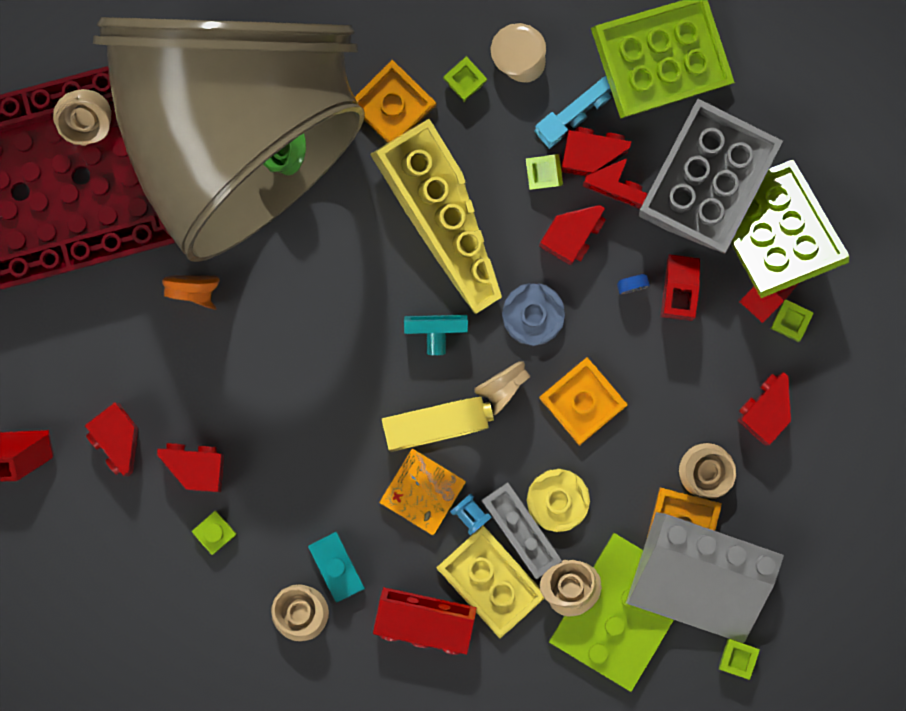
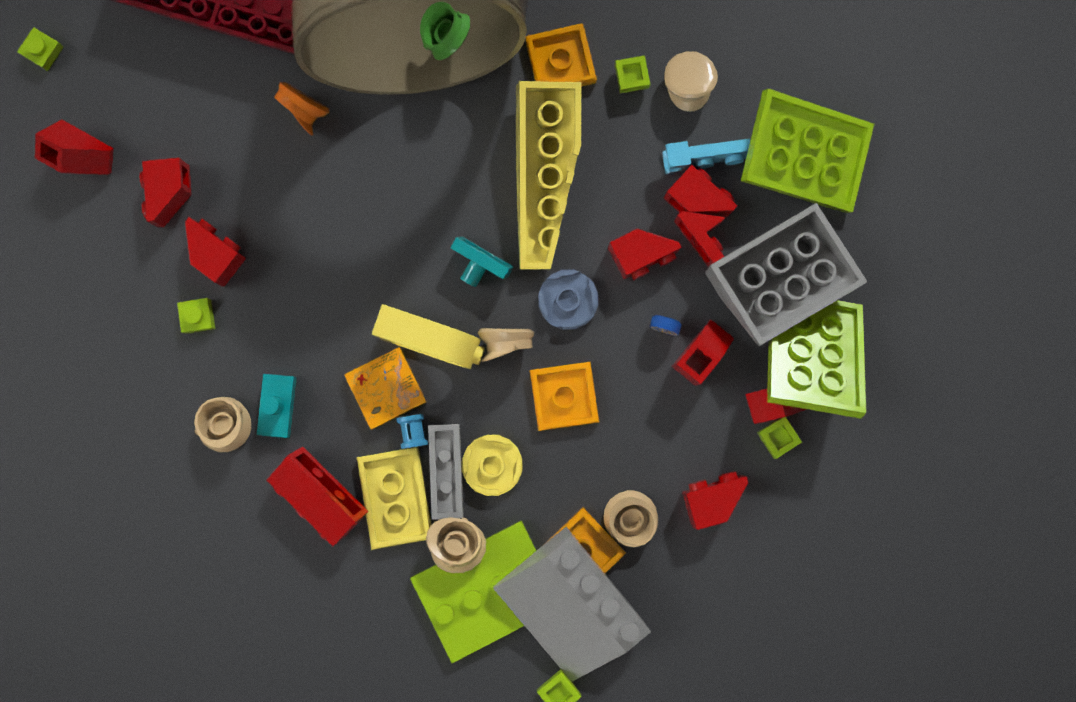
camera: 30 degrees right, 0 degrees up
(544, 172) = (649, 188): lime plate -> none

